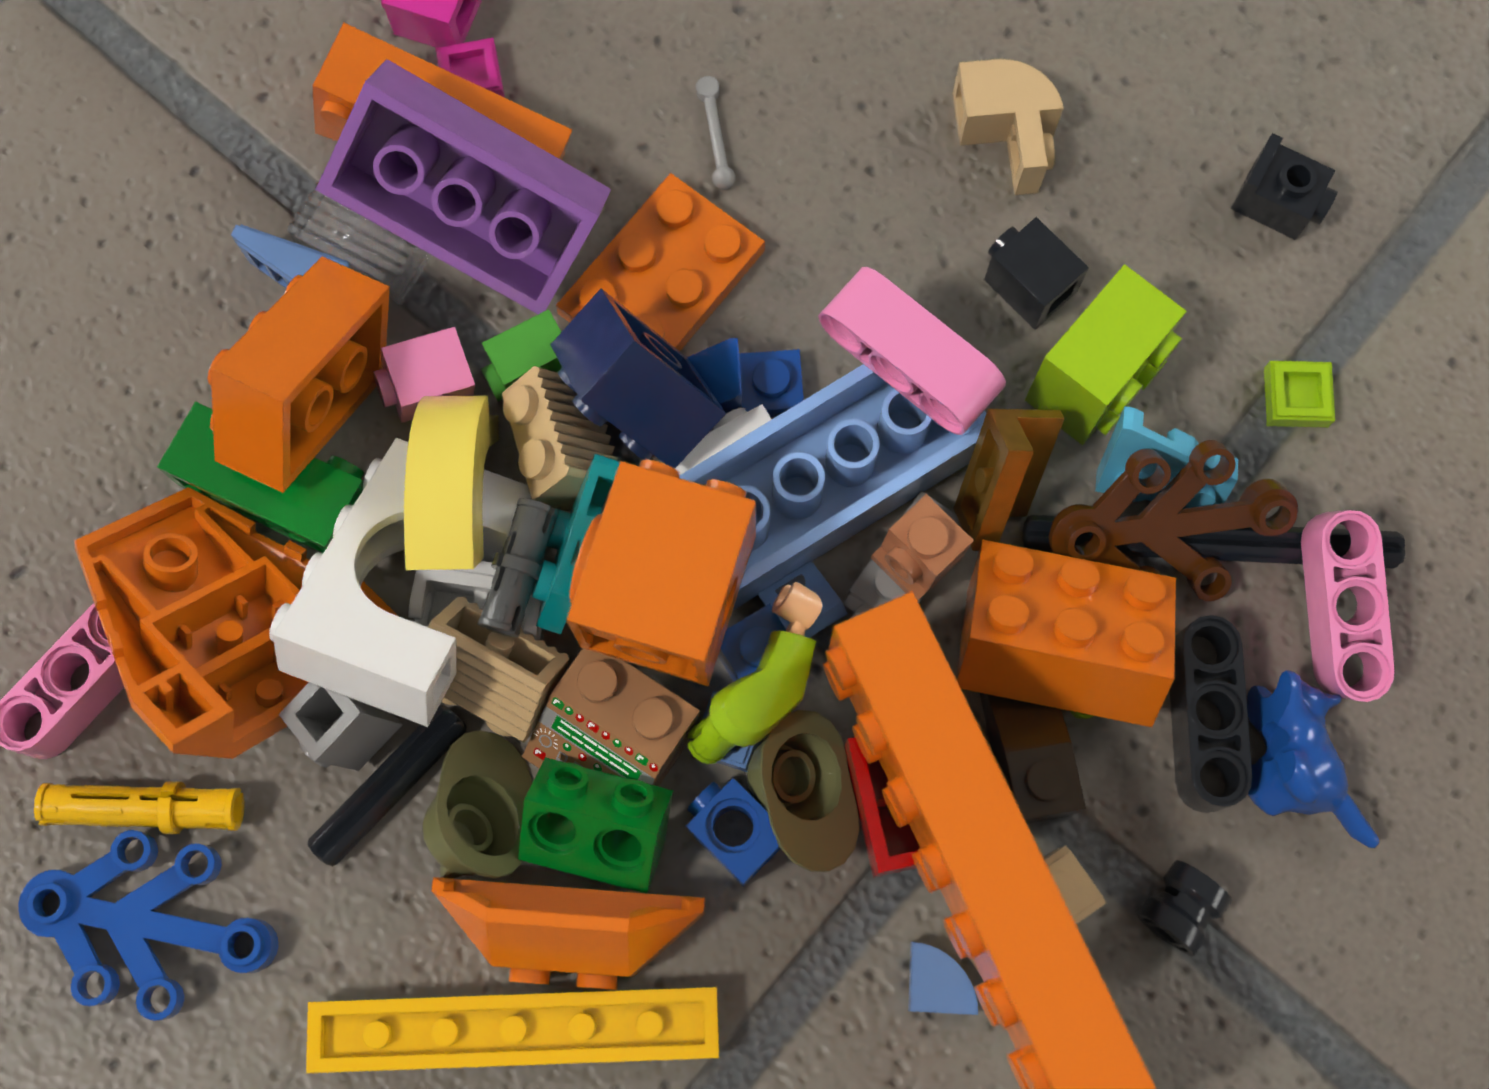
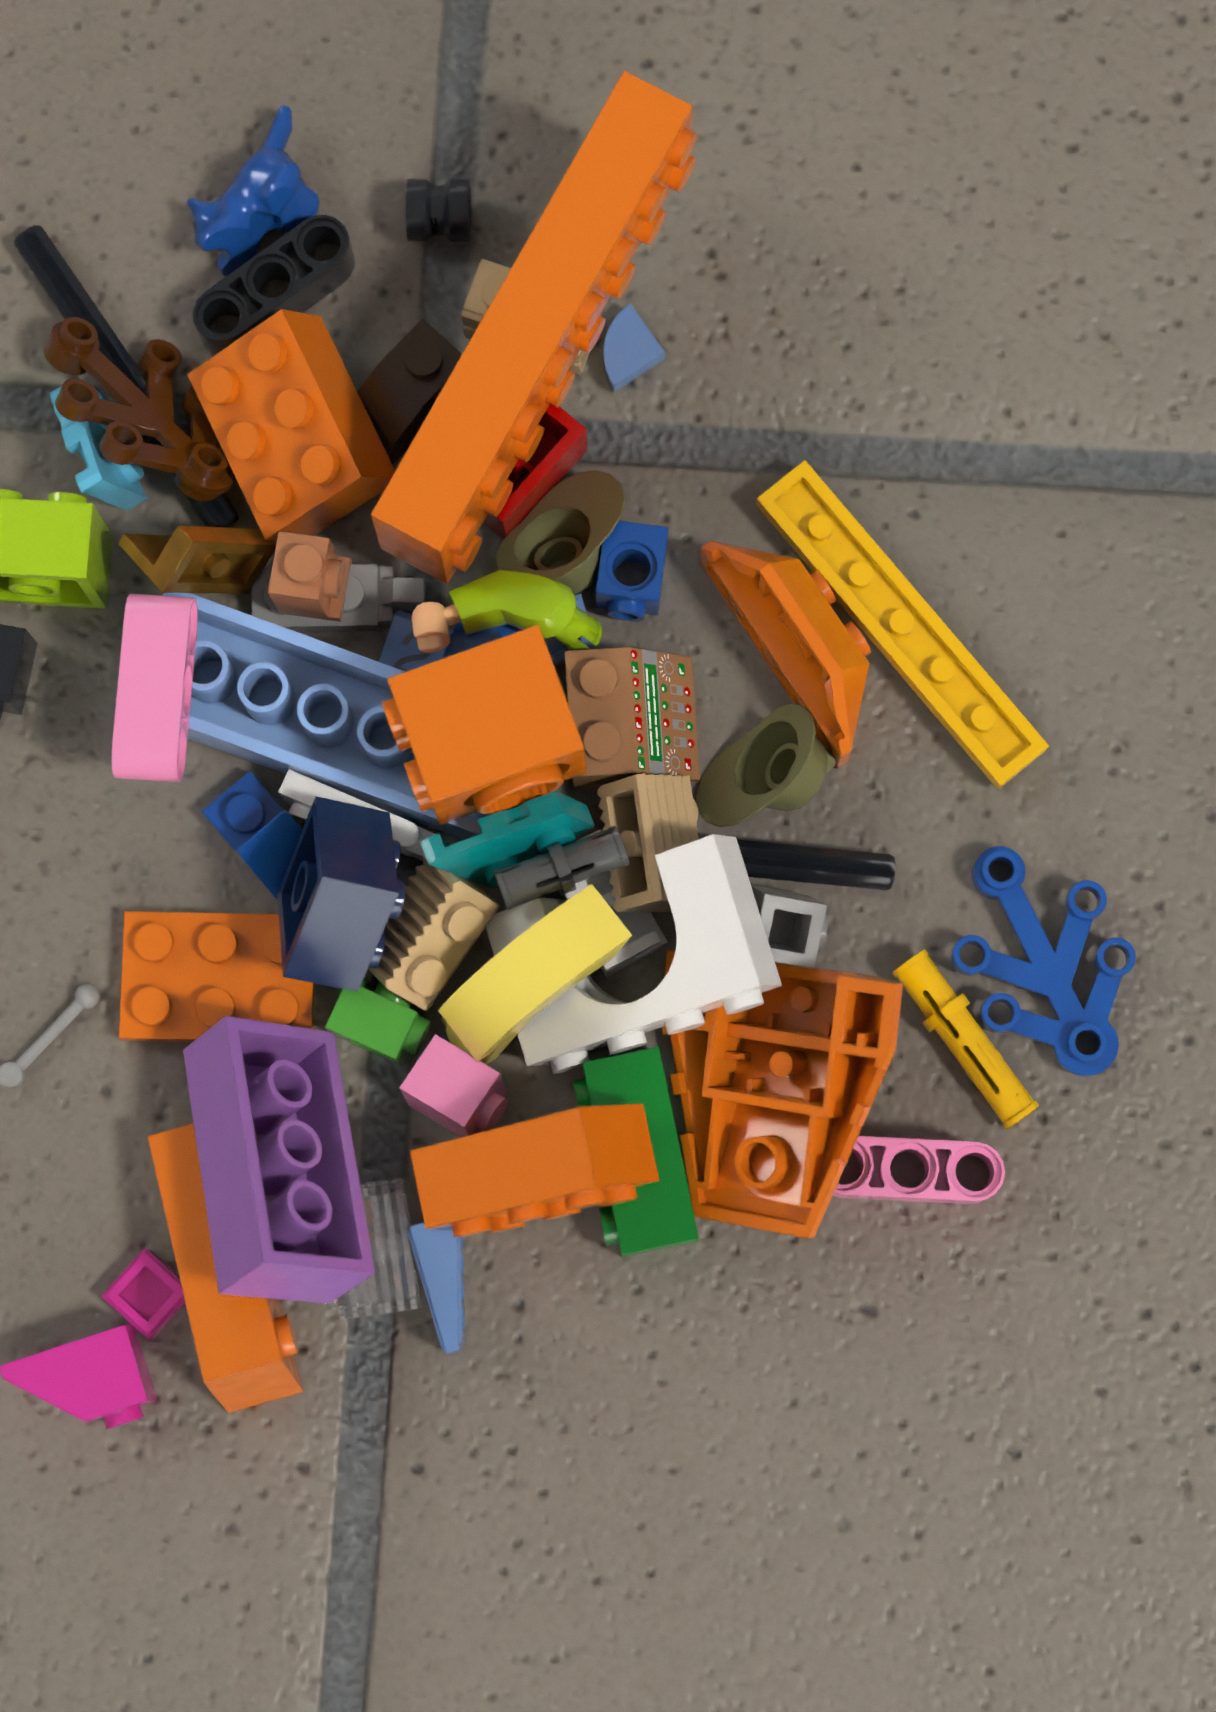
camera: 125 degrees left, 5 degrees up
(594, 824) = (708, 670): green brick -> none
(1369, 629) = (118, 213): bright pink beam -> none

